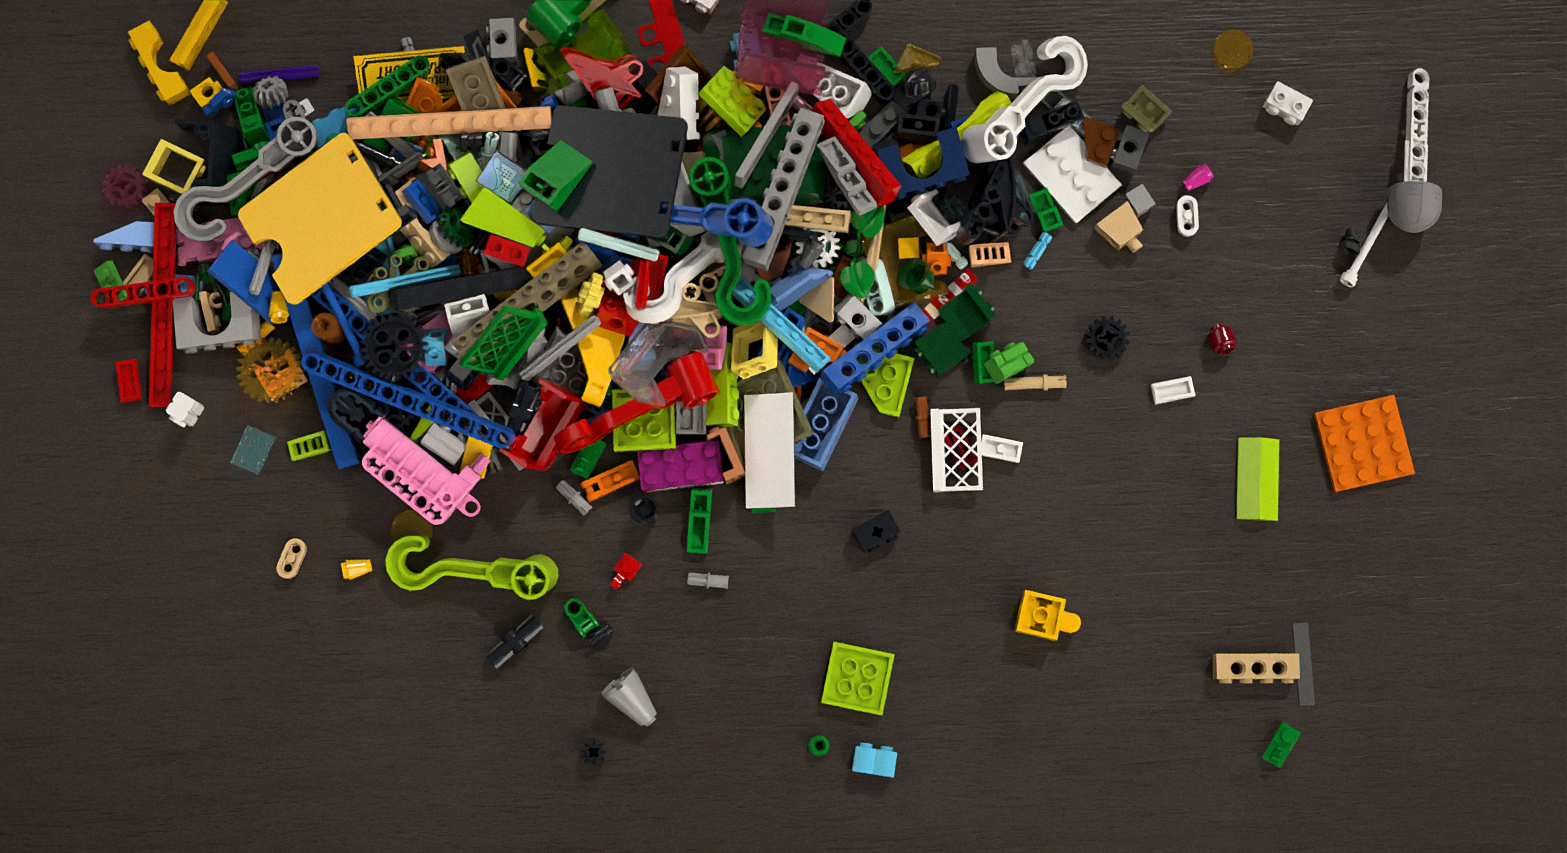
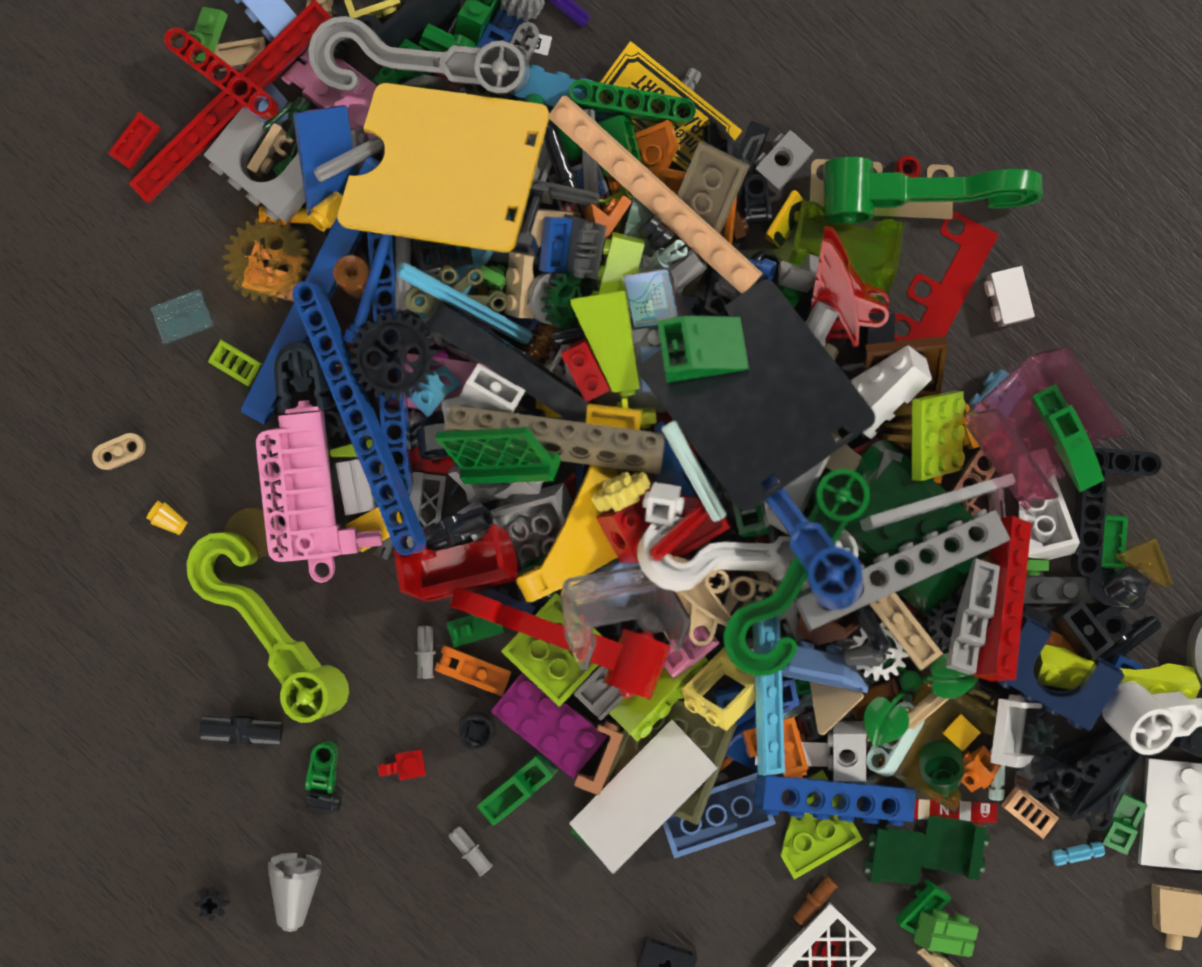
camera: 45 degrees right, 5 degrees up
(184, 410) = (154, 219): white brick -> none
(560, 348) = (545, 511): light grey axle -> none

